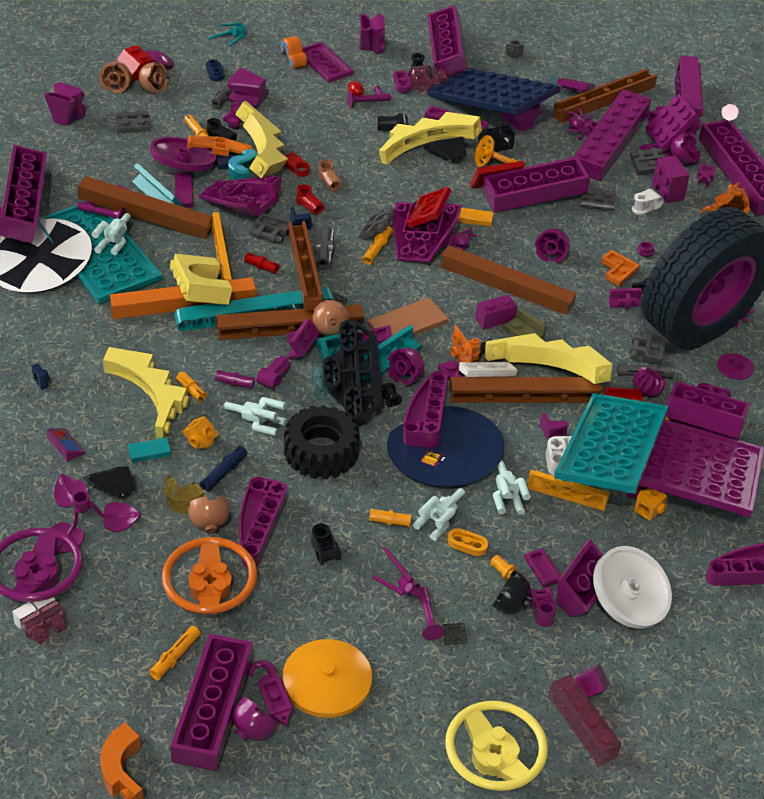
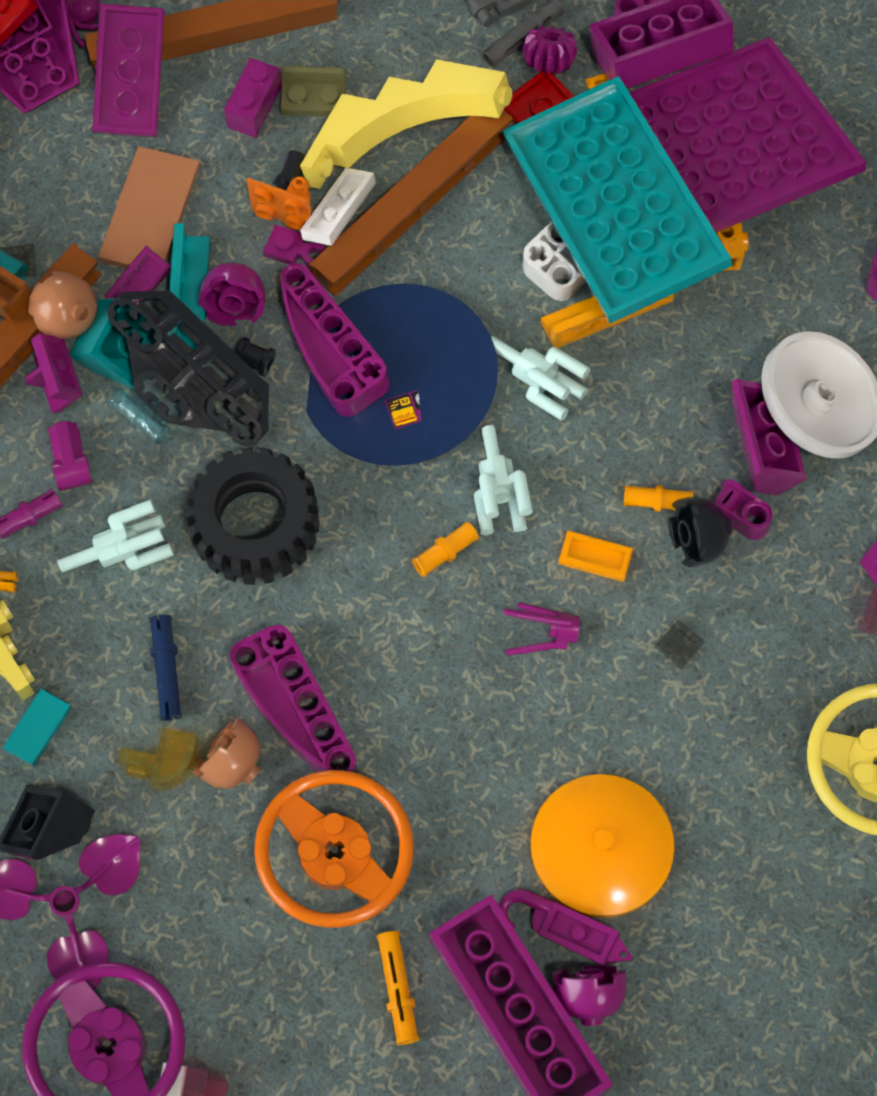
camera: 40 degrees left, 25 degrees up
(200, 433) = (83, 644): light orange brick -> none
(324, 543) = (414, 666): black piece -> none
(432, 630) = (596, 626): magenta piece -> none
(453, 268) = (128, 70): none -> magenta tile
(455, 572) = (595, 556): none -> light orange tile
(468, 542) = (568, 497): light orange plate -> none
(542, 567) = (686, 453): magenta tile -> none
(552, 428) = (500, 229): magenta panel -> none

